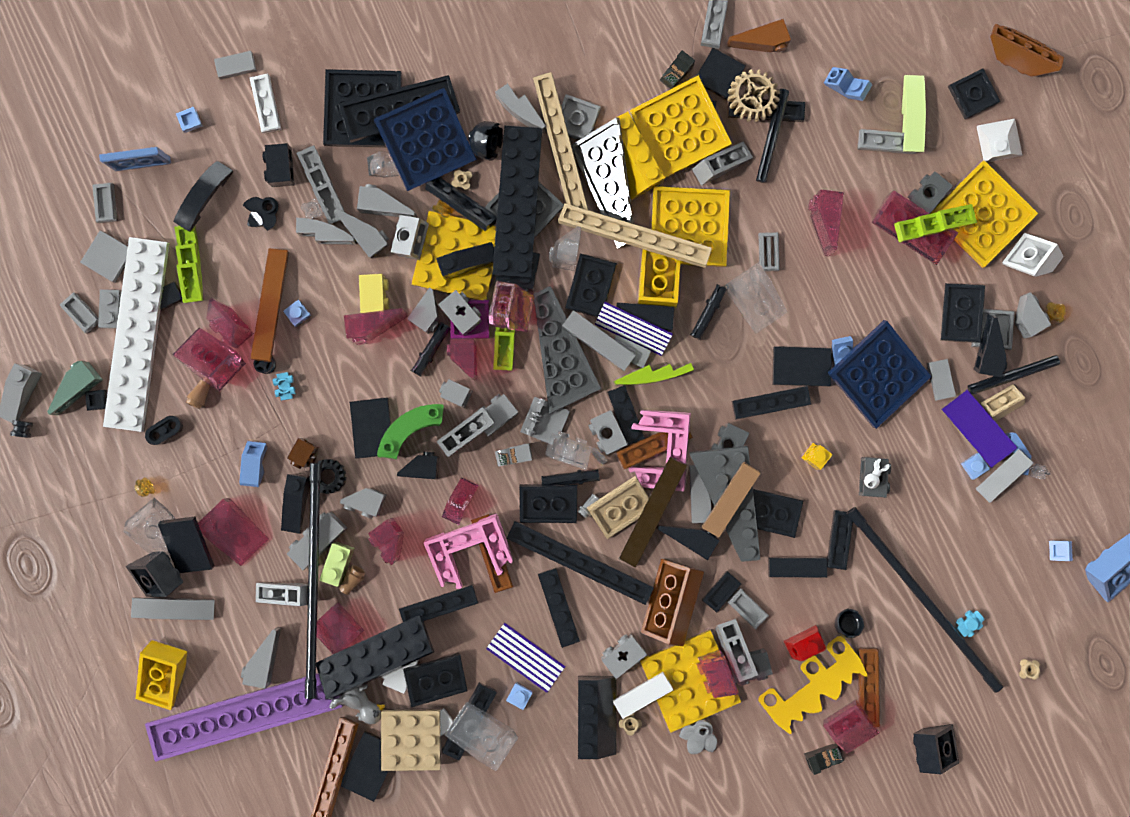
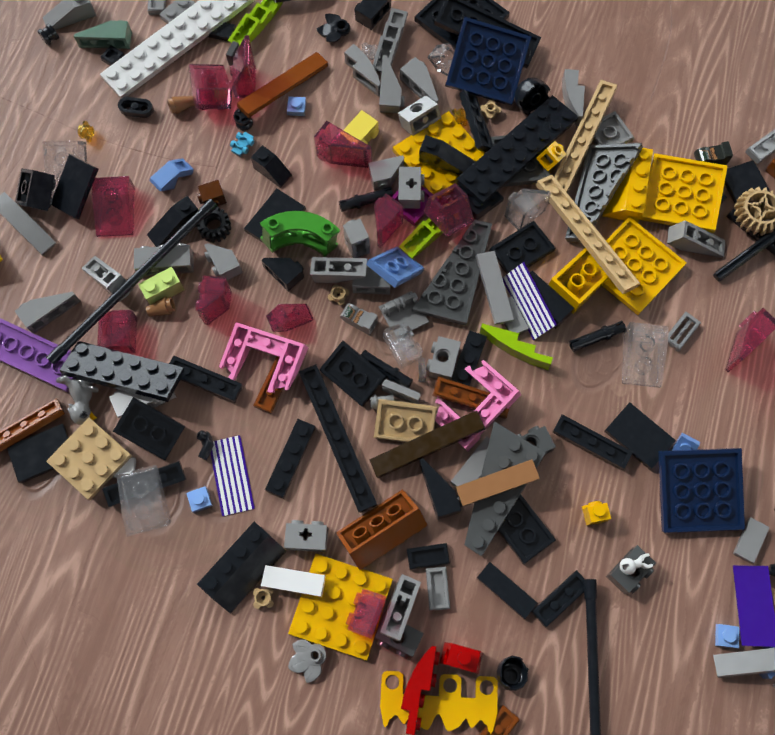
camera: 40 degrees right, 15 degrees down
(199, 310) = (231, 52): none -> dark grey tile
(328, 387) = (270, 166): none -> black slope
(475, 448) = (336, 289): none -> tan plate
(486, 650) = (207, 442): none -> black arm
(508, 392) = (395, 266): none -> medium blue tile
(548, 182) = (555, 152): none -> yellow brick
(598, 486) = (401, 391): none -> light grey tile
(790, 685) = (421, 679): none -> red slope

